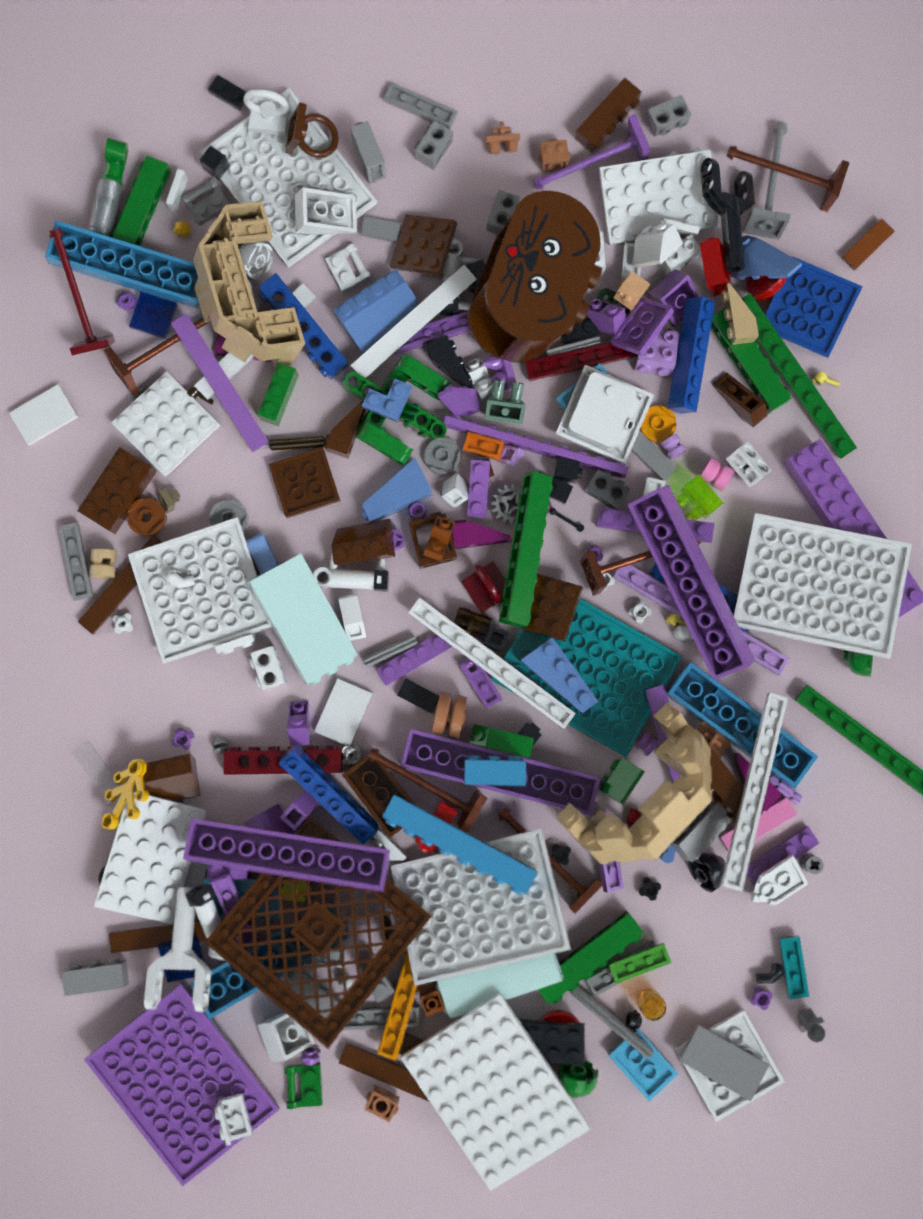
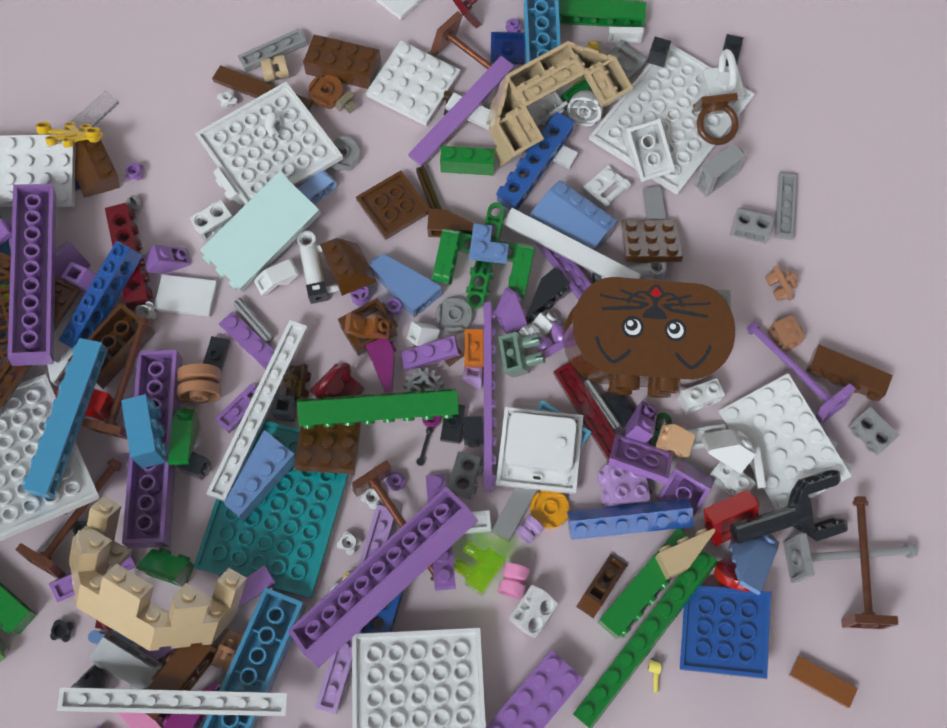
camera: 75 degrees right, 15 degrees down
(647, 744) = (209, 584): medium lavender wheel -> none

